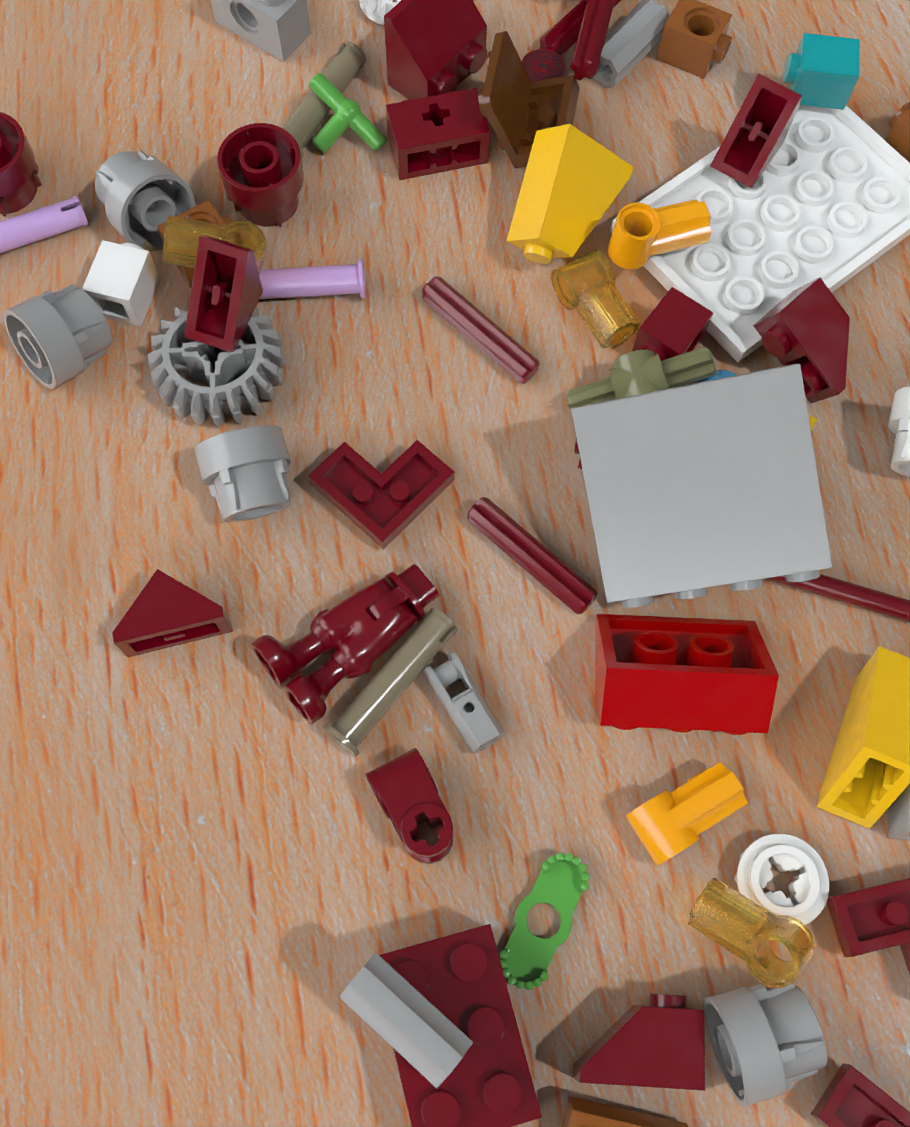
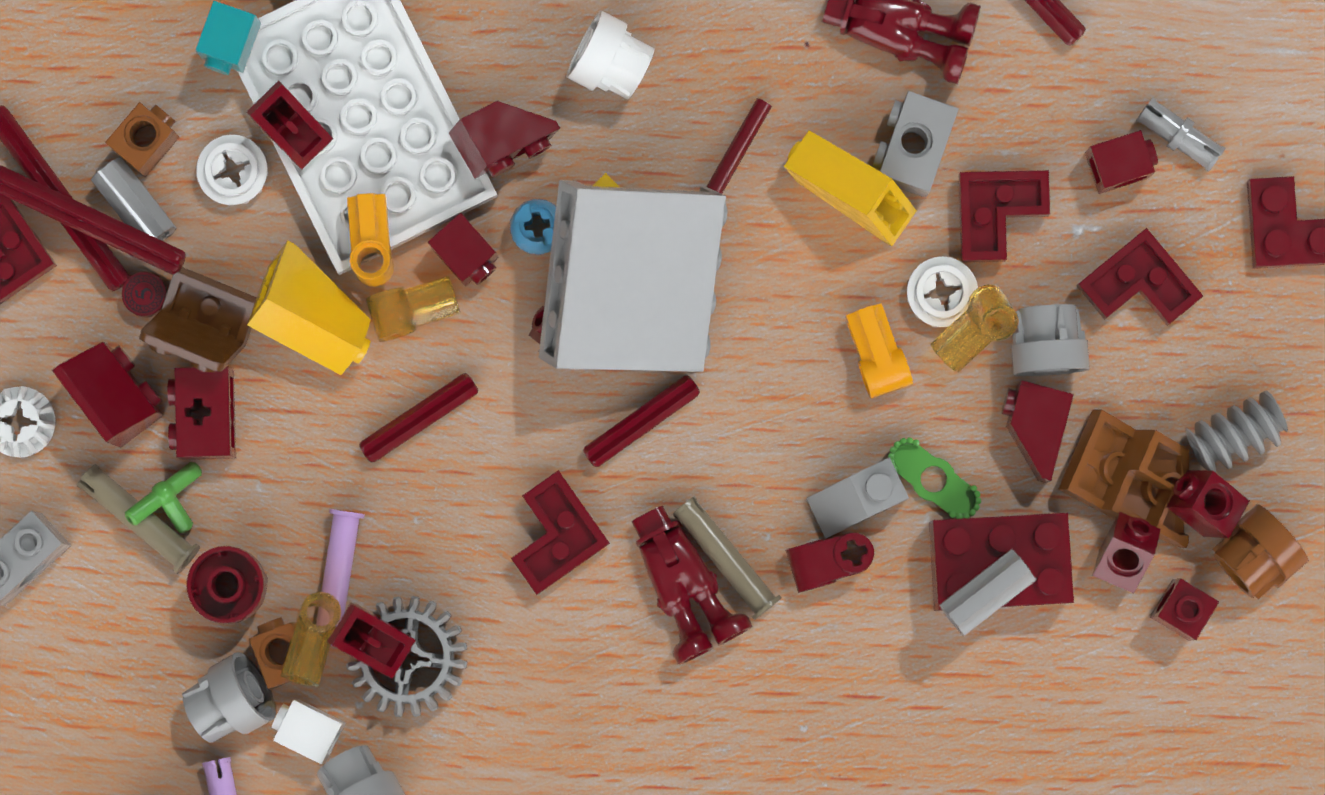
camera: 75 degrees left, 15 degrees up
(168, 616) = (635, 728): dark red slope -> none
(246, 471) = (527, 644): light grey piece -> none
(468, 708) = (763, 502): light grey bar -> none
(499, 825) = (857, 498): none -> light grey slope
(644, 373) = (510, 292): olive axle -> none
(683, 674) = (767, 325): red slope -> none
(687, 104) = (212, 164): none -> white gear

